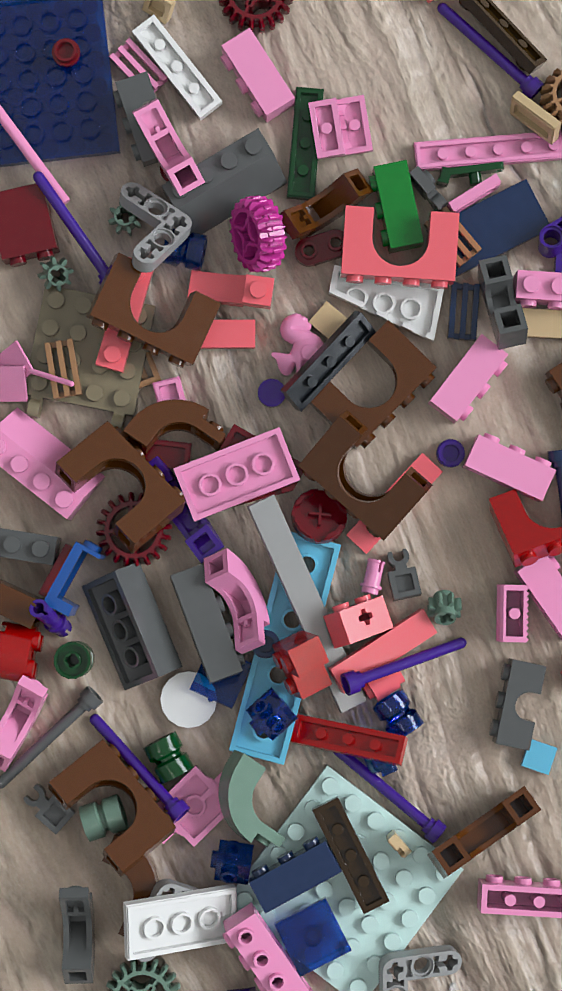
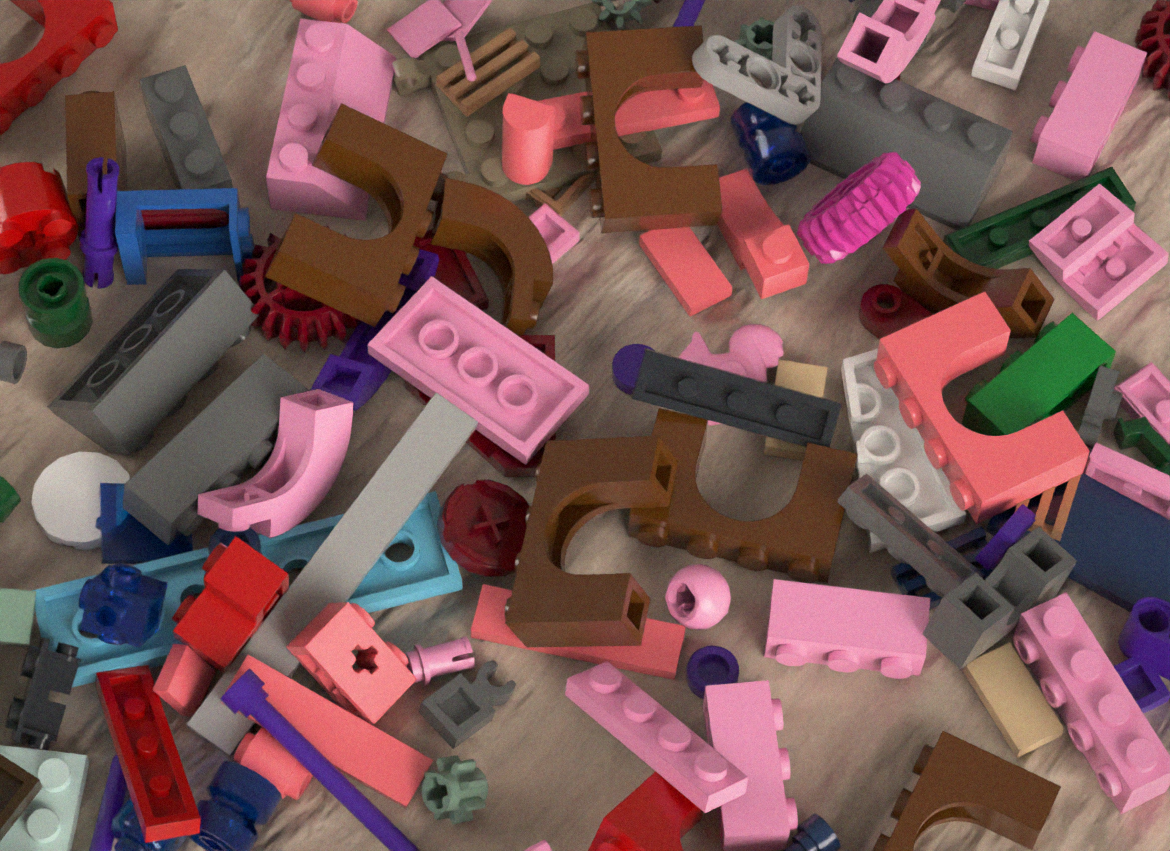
camera: 60 degrees right, 25 degrees down
(126, 378) = (527, 139): none -> coral brick
(278, 766) = (46, 672): none -> black hinge
(317, 704) = (184, 680): none -> coral tile
(413, 439) = (698, 596): none -> bright pink piece
(446, 323) = (906, 535): none -> flat silver plate
(470, 277) = (1006, 537): none -> dark purple tile
(476, 502) = (656, 736): none -> bright pink plate

